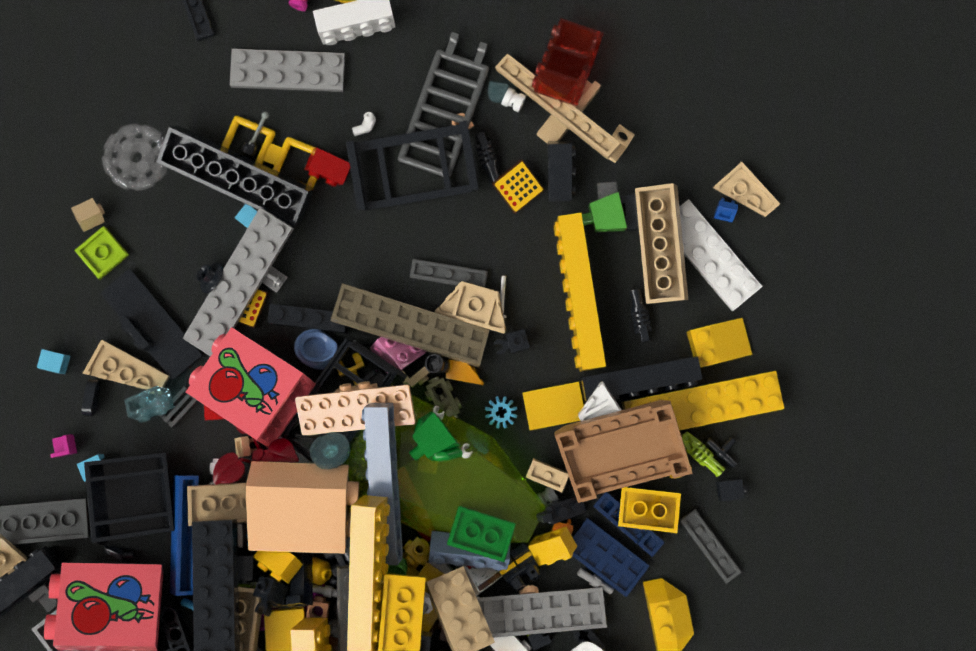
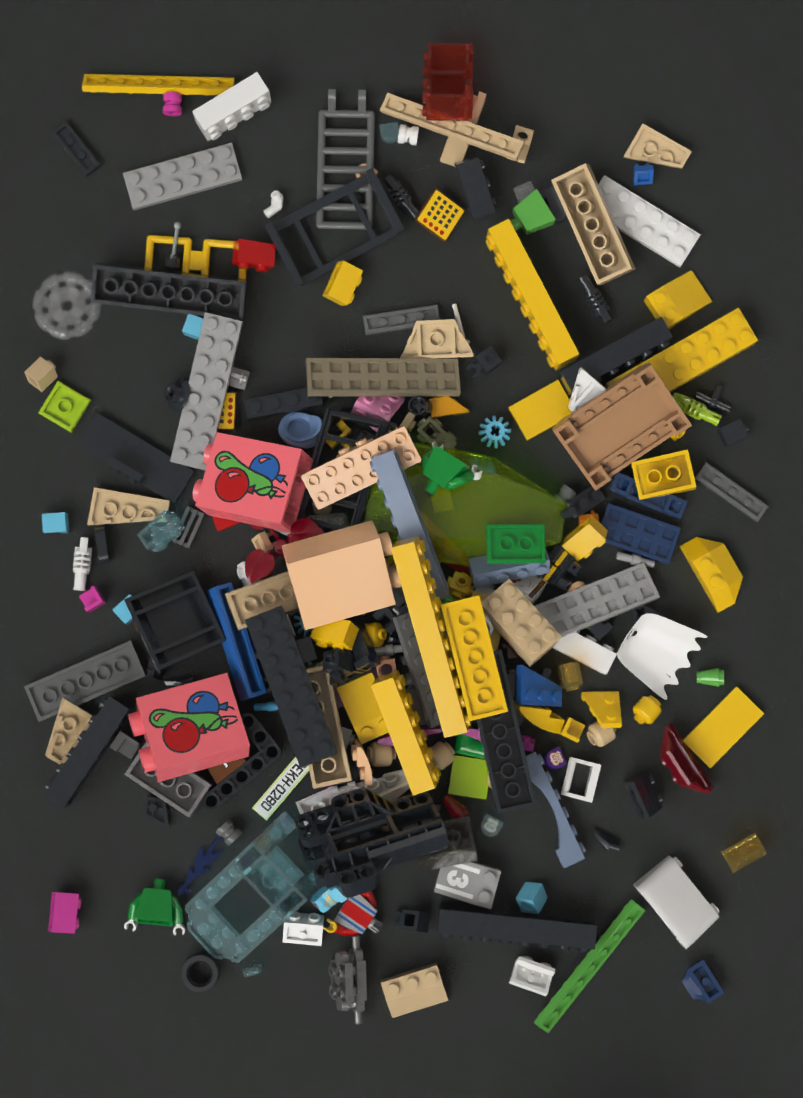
camera: 20 degrees left, 0 degrees up
(65, 408) = (81, 564): none -> white hinge
(330, 450) = (350, 512): clear light blue tile -> none
(403, 222) = (343, 283): none -> yellow brick
(547, 475) = (558, 474): tan panel -> none

